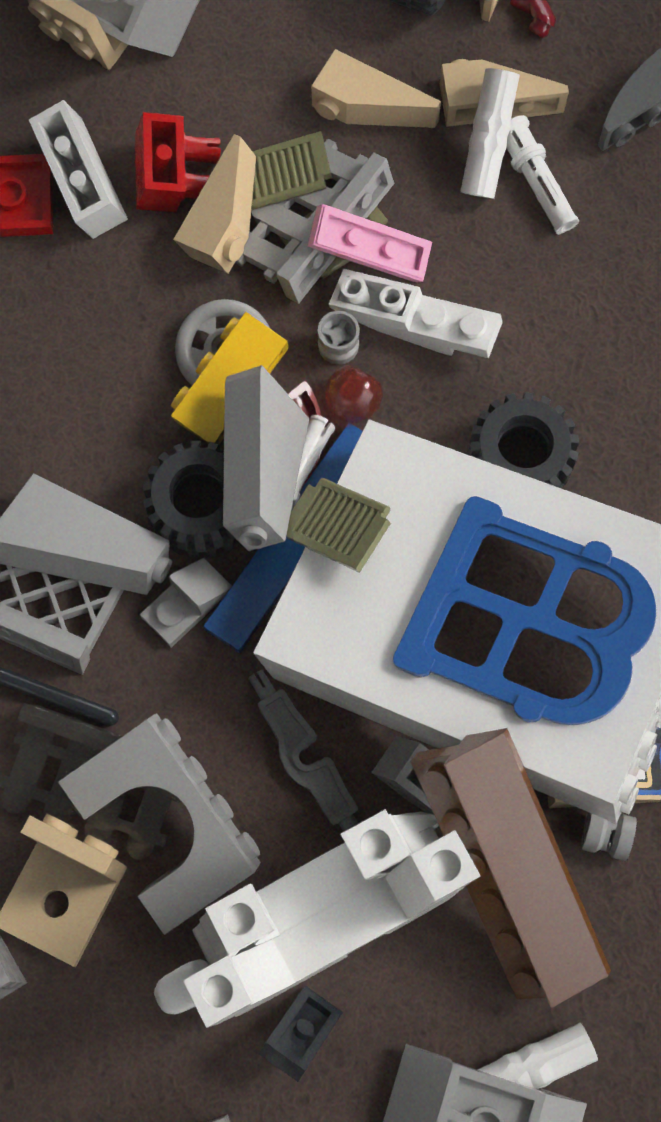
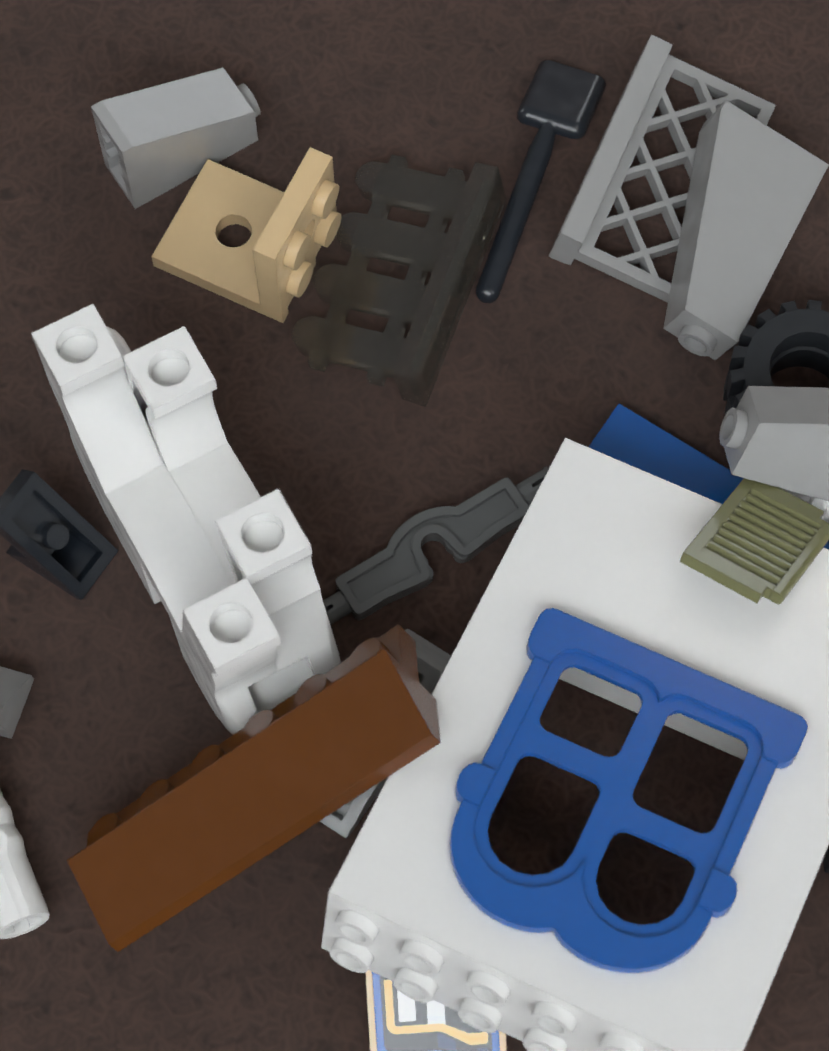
camera: 90 degrees right, 5 degrees down
(188, 599) = (658, 382): light grey slope -> none
(219, 852) = (415, 326): light grey arch -> none
(609, 836) = (313, 973): light grey wheel -> none

